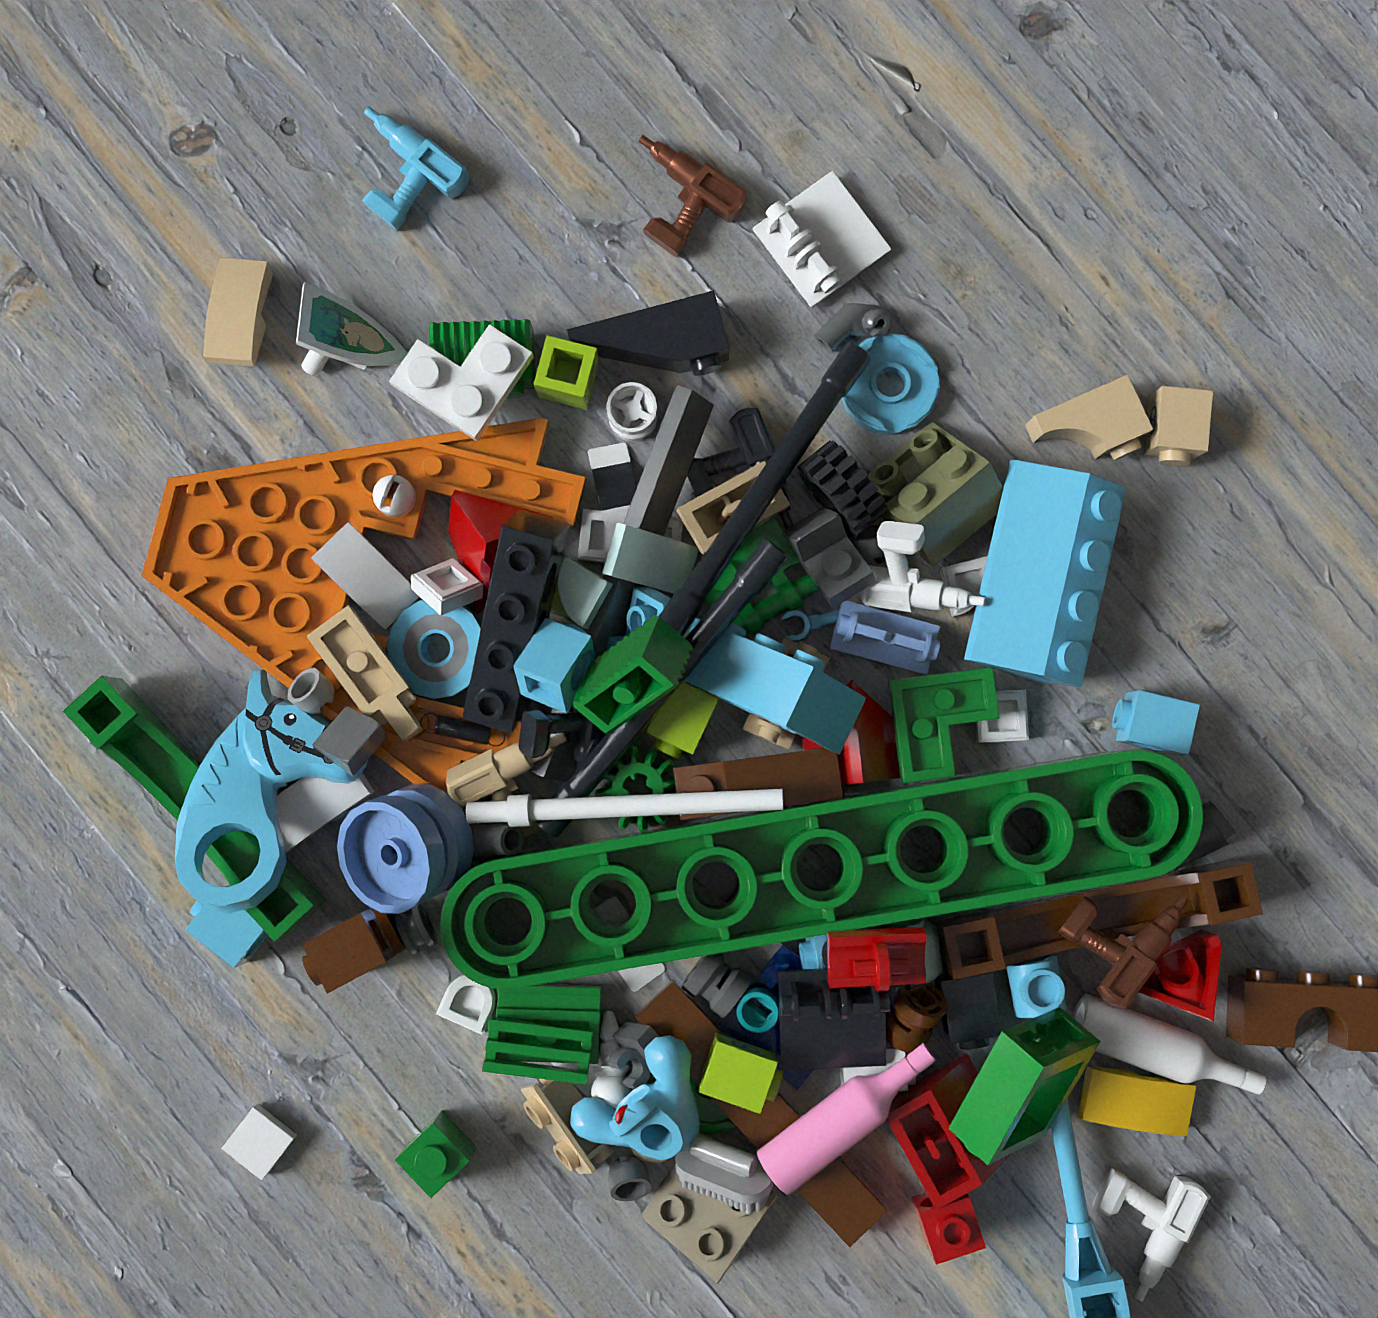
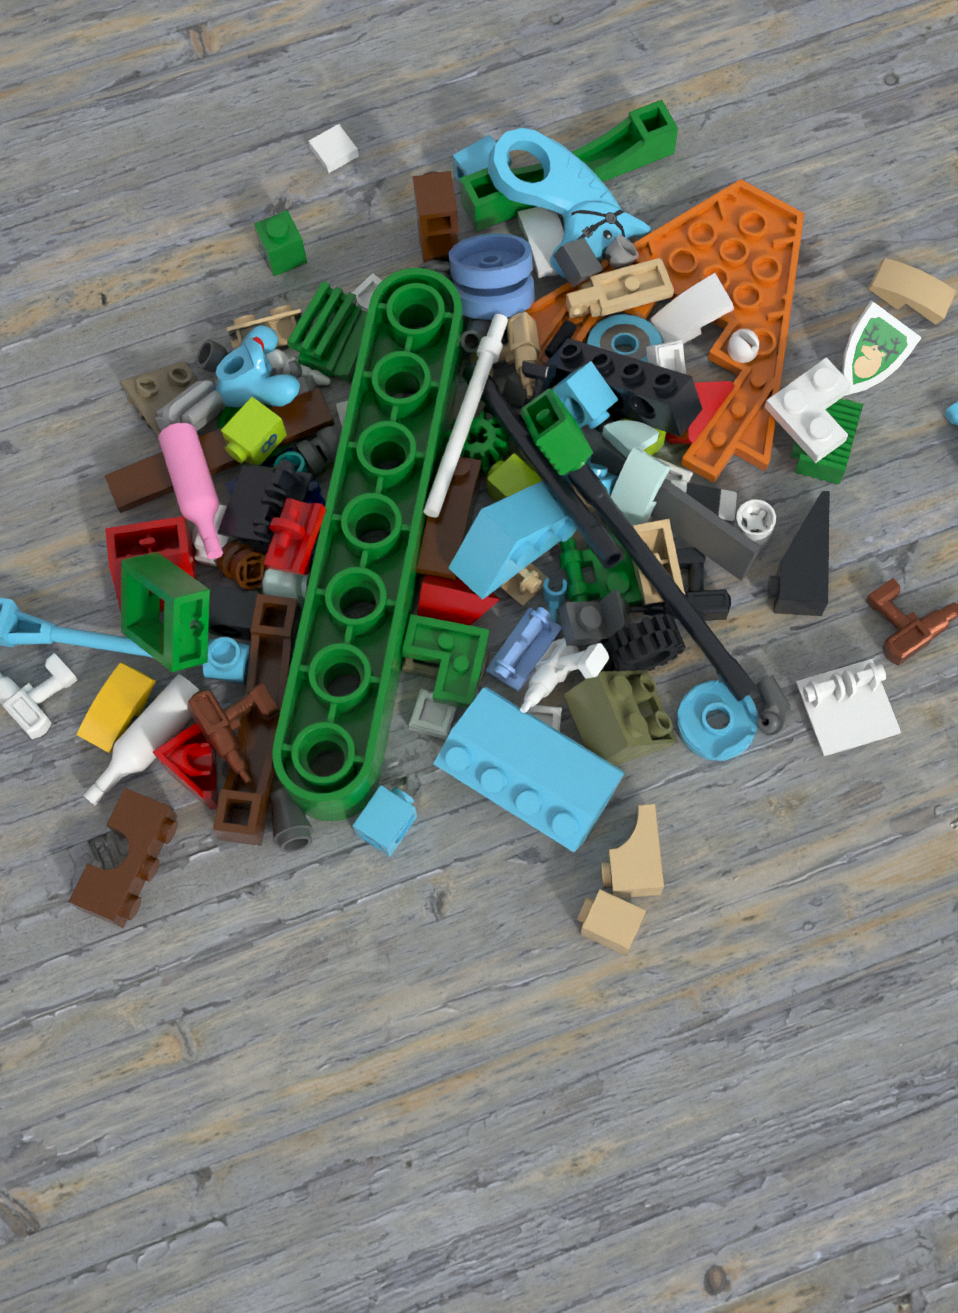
camera: 115 degrees right, 15 degrees down
(566, 372) = (796, 484): lime brick -> none
(949, 1230) = (87, 546): red brick -> none

